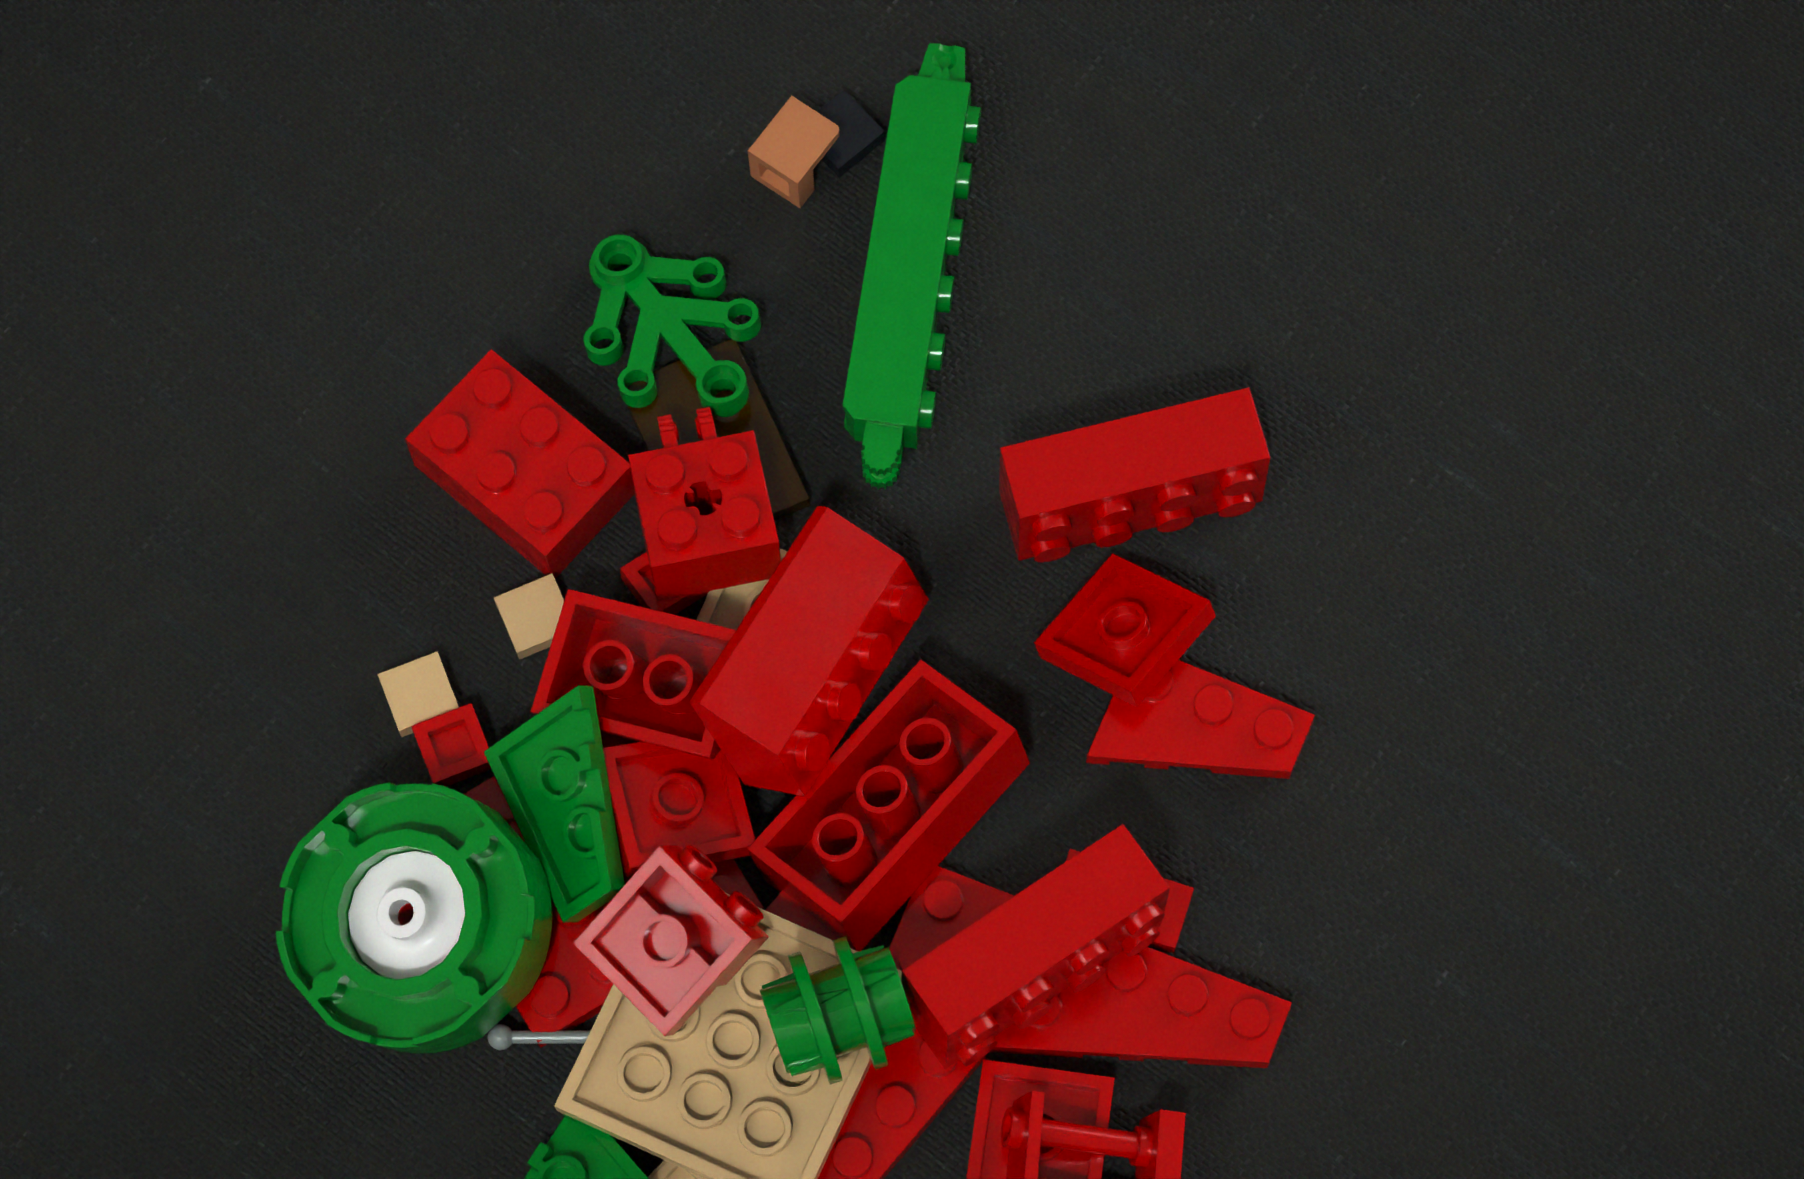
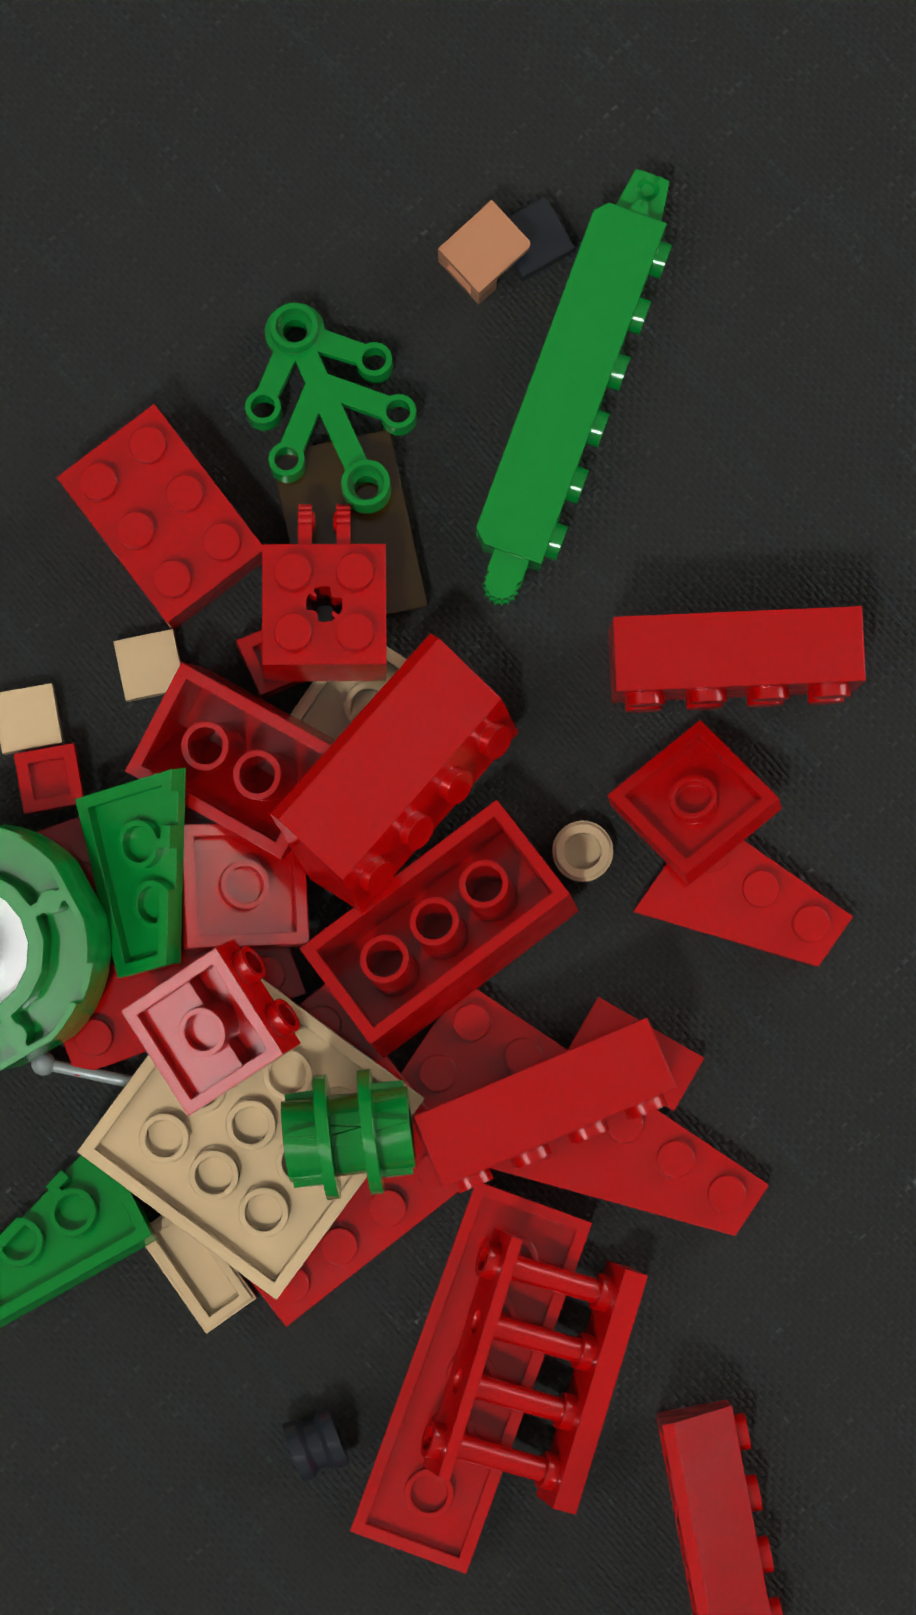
camera: 10 degrees right, 15 degrees up
(1024, 706) = (582, 851): none -> tan tile

